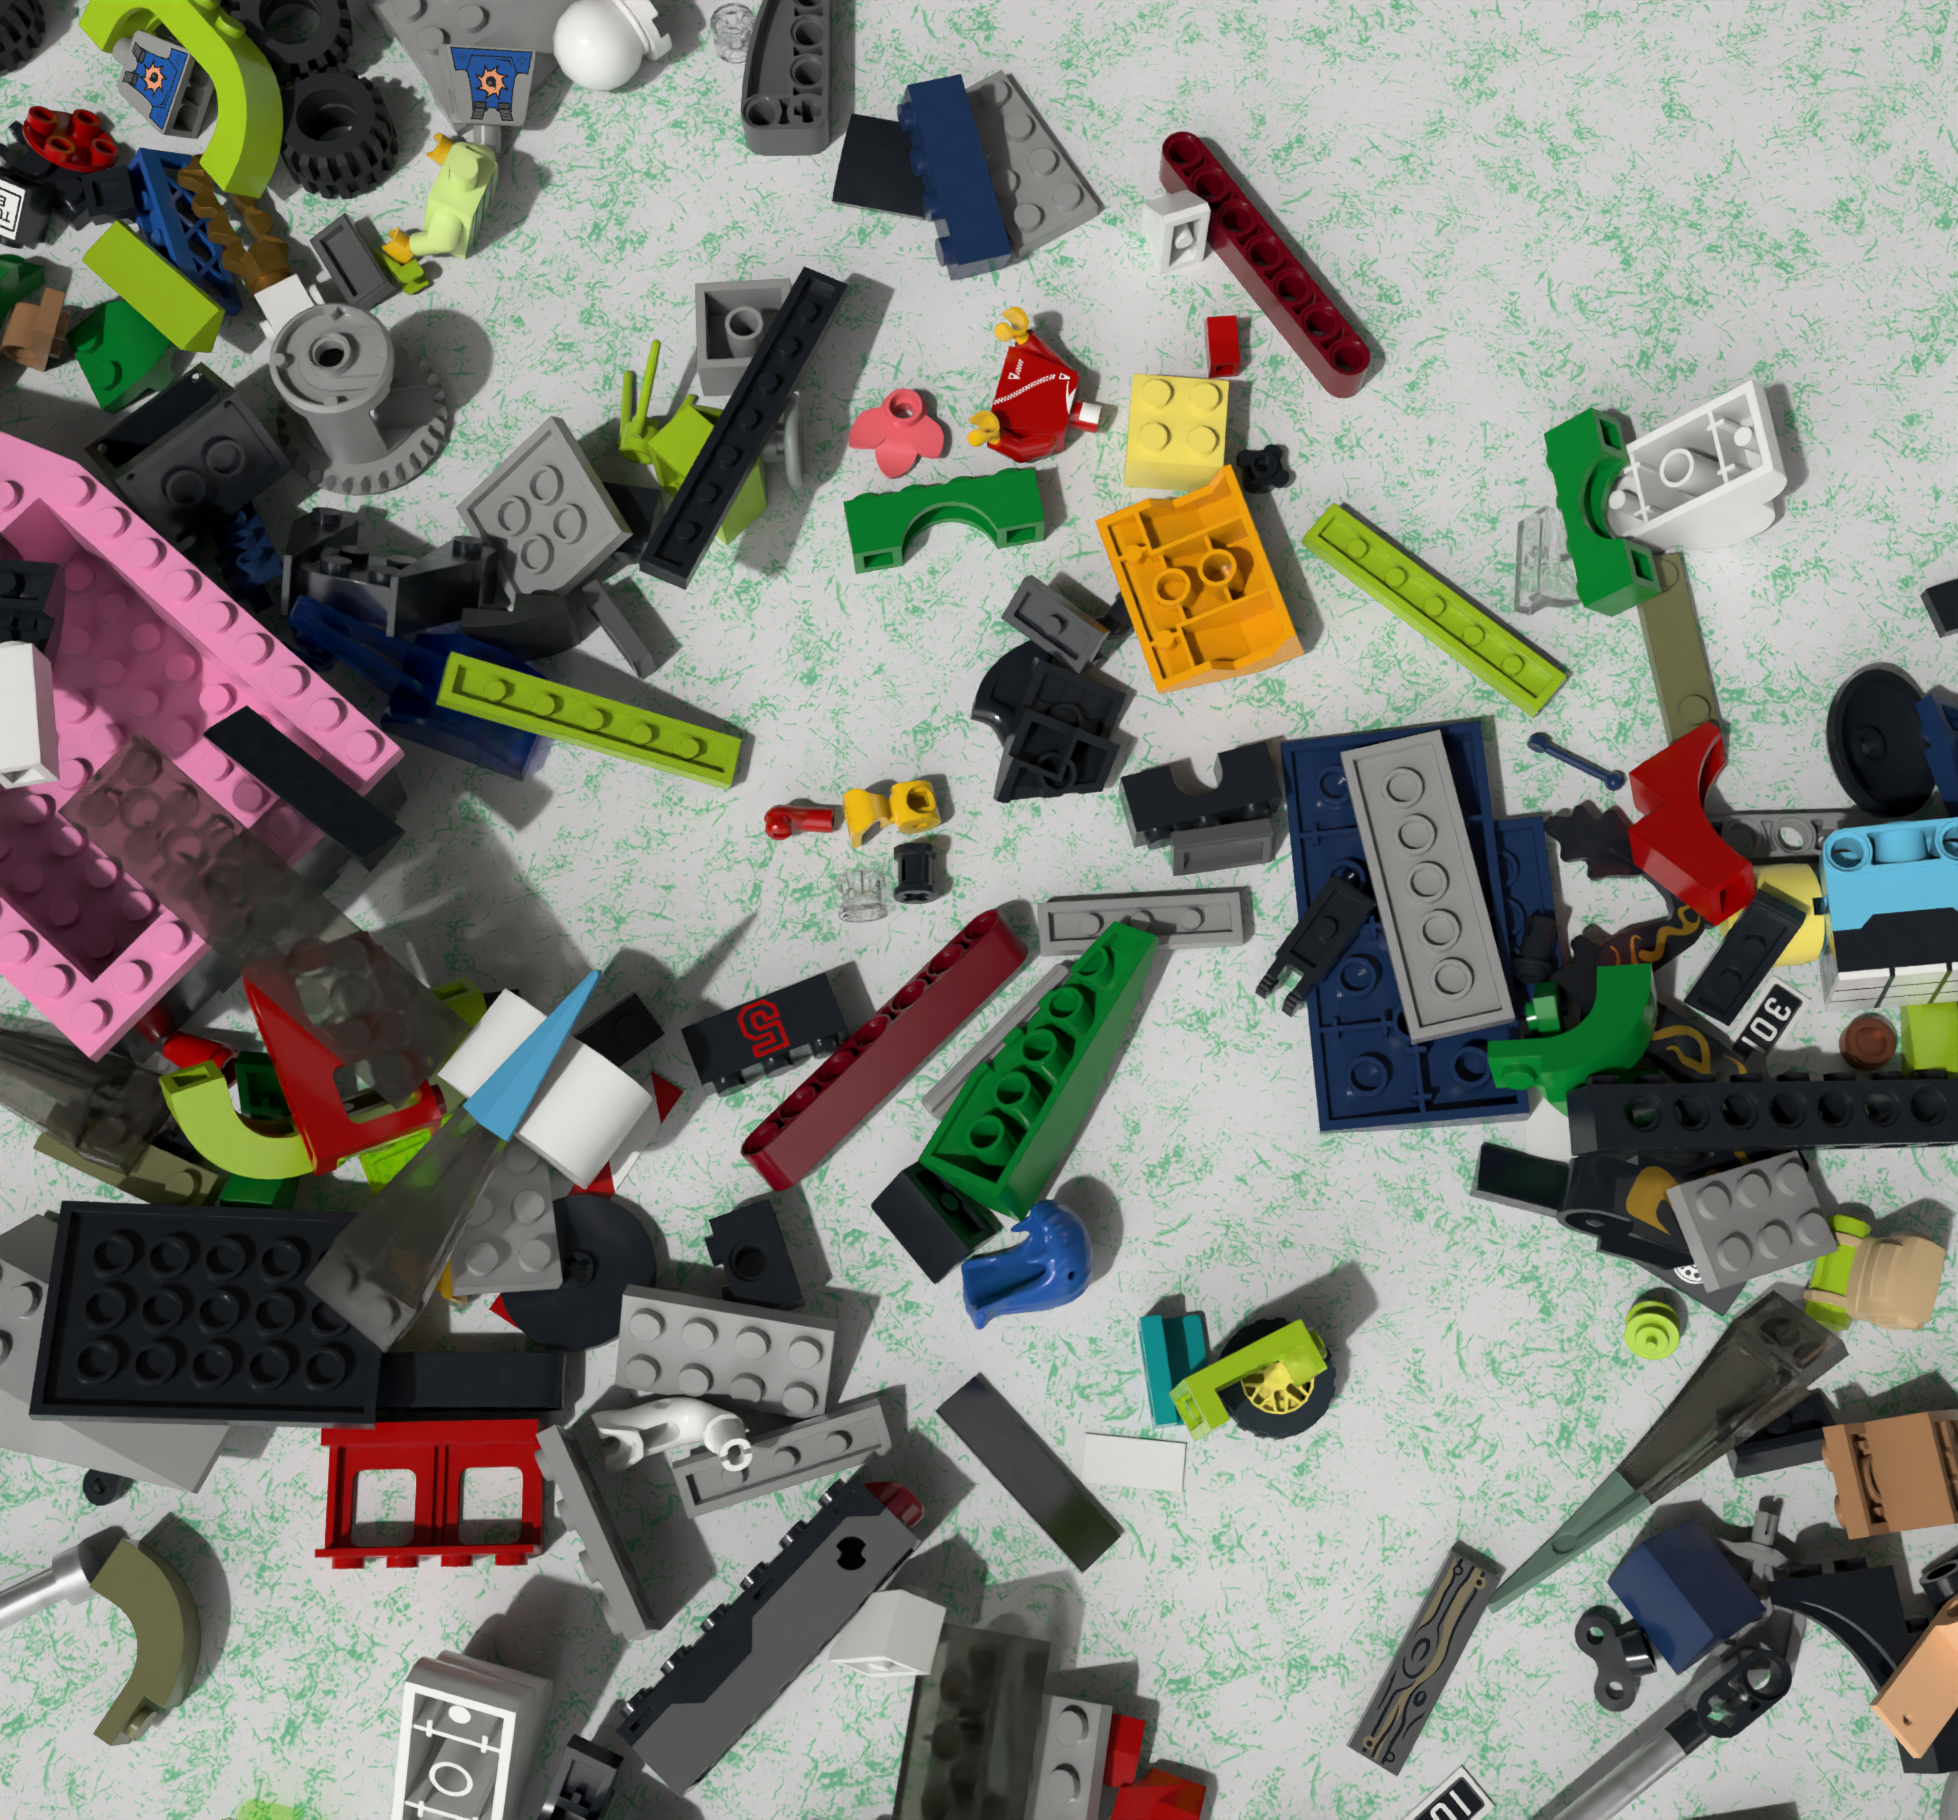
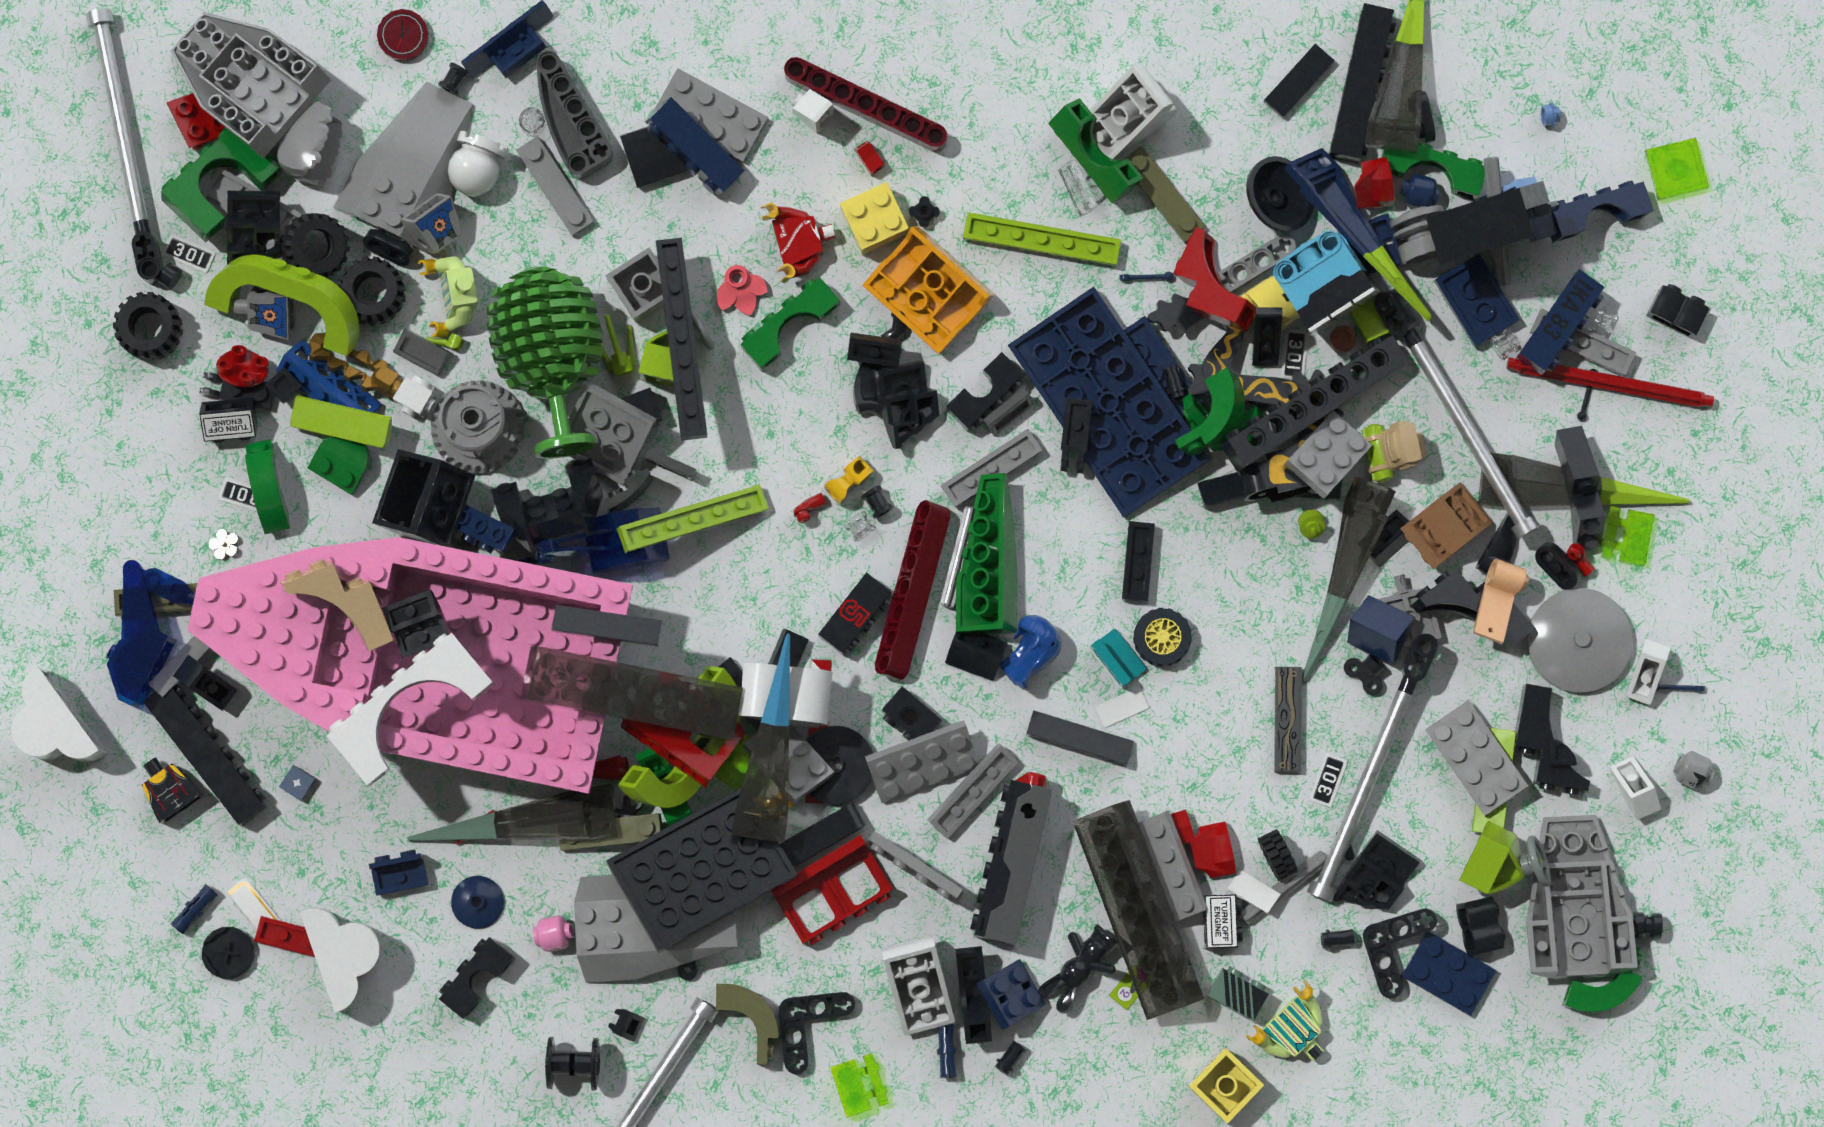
camera: 30 degrees left, 10 degrees up
(36, 331) = (299, 475): medium nougat plate -> none
(226, 1698) = (798, 1022): none -> black beam
(404, 90) = (388, 247): none -> black plate
(530, 325) = (545, 345): none -> bright green plant
(668, 1425) = (916, 804): white piece -> none
(710, 141) = (555, 186): none -> light grey plate
(892, 1634) = (1062, 835): white slope -> none
(1197, 1395) = (1134, 665): lime panel -> none
(1304, 1221) = (1138, 561): none -> black plate
(1426, 887) = (1110, 380): light grey plate -> none

